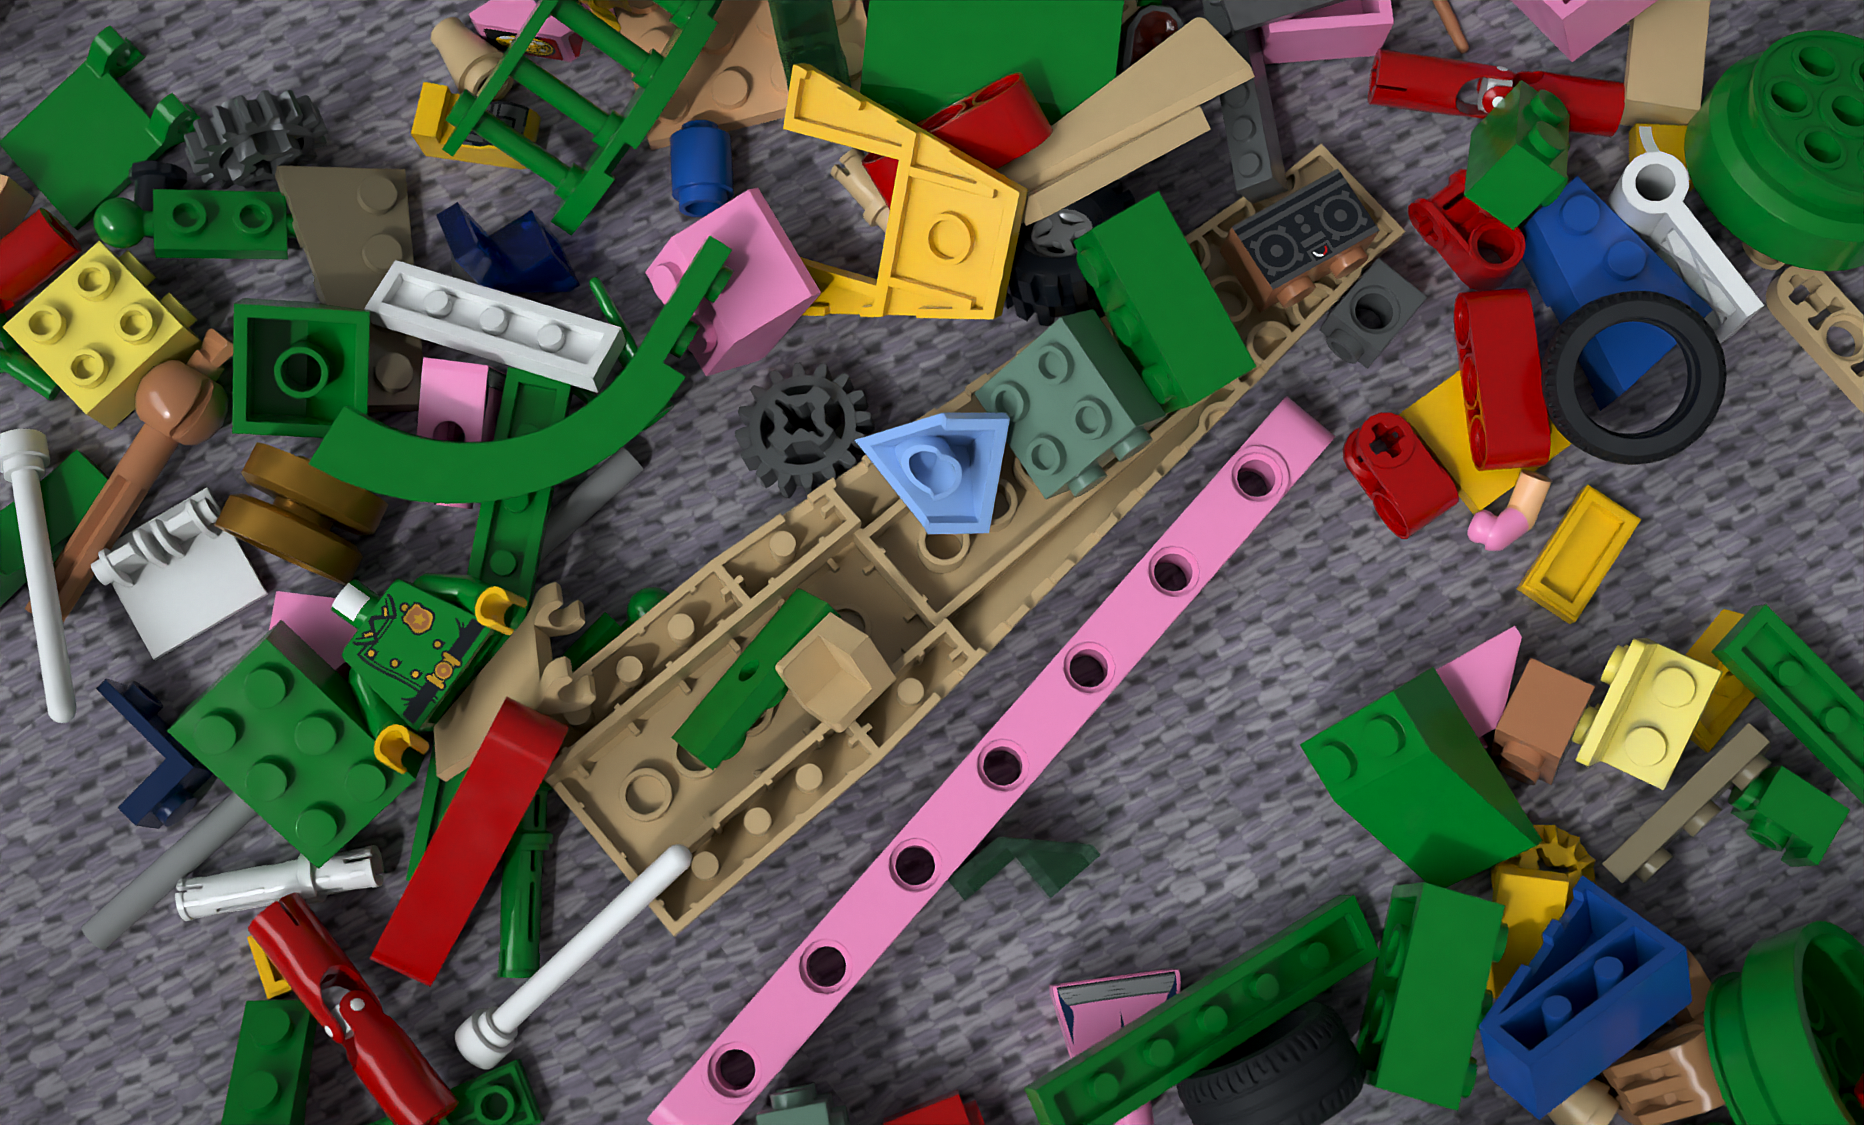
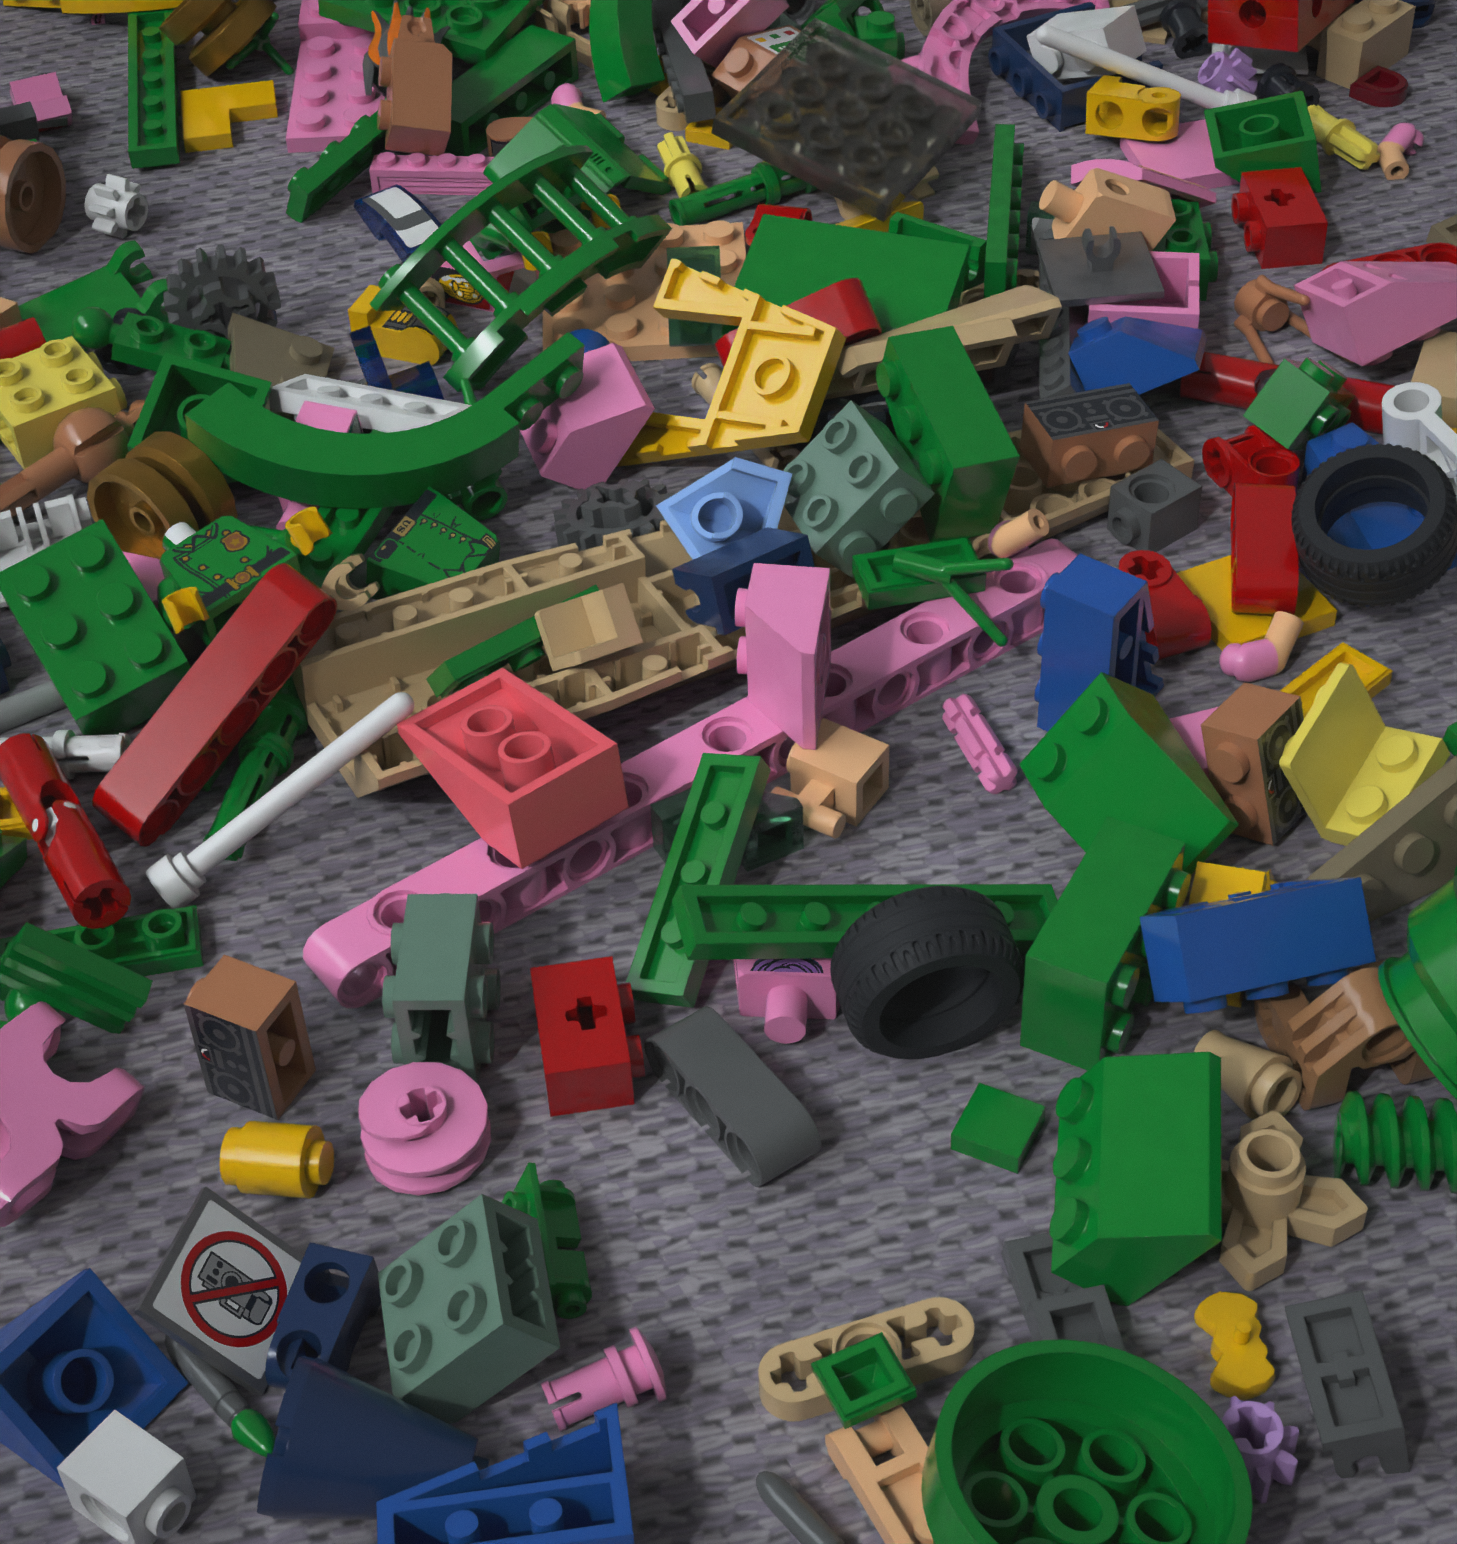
camera: 15 degrees right, 35 degrees down
(633, 536) = (430, 546): none -> green torso
(806, 893) = (518, 765): none -> coral slope
(984, 560) = (721, 572): none -> dark blue hinge
(1017, 967) = (703, 852): none -> green plate
(1060, 689) = (786, 645): none -> bright pink slope
(1117, 776) = (838, 778): none -> light nougat brick
(1156, 499) = (885, 588): none -> green tile
(1194, 519) = (943, 572): none -> green plant
(1245, 691) = (979, 744): none -> bright pink axle
(1247, 434) = (1015, 536): none -> light nougat arm
(1336, 102) = (1135, 353): none -> blue slope
(1363, 608) = (1091, 627): none -> blue wedge

